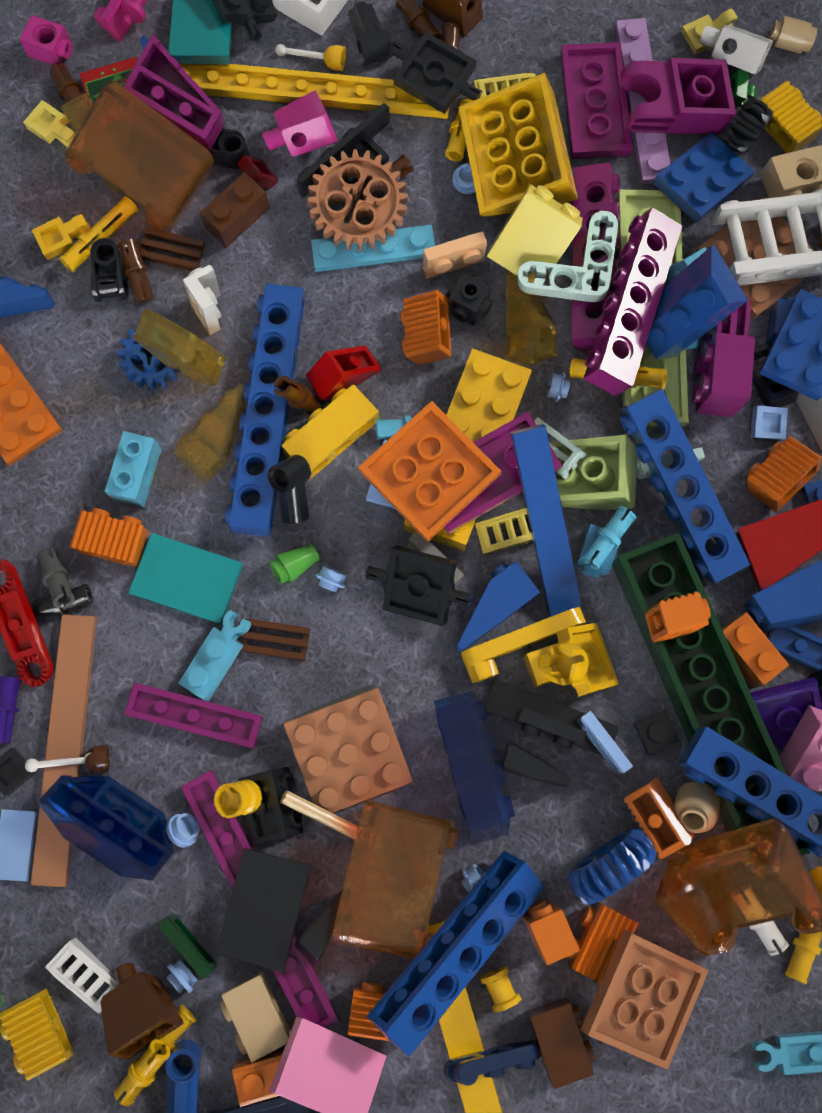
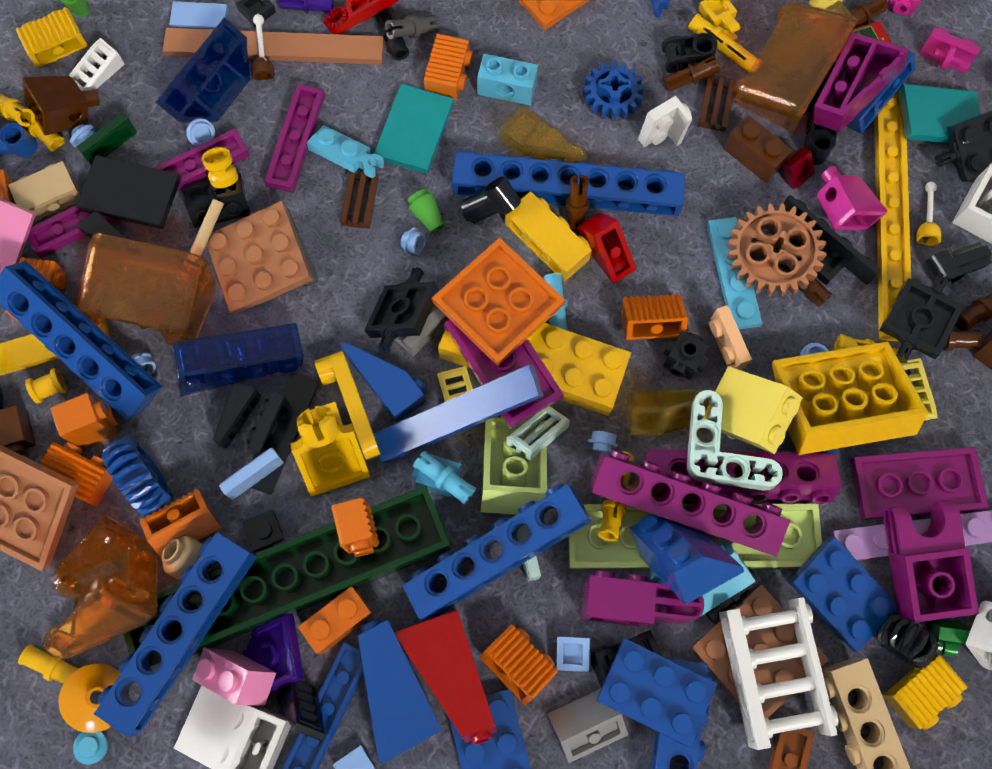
camera: 90 degrees right, 5 degrees down
(179, 348) = (614, 101): clear yellow slope -> none

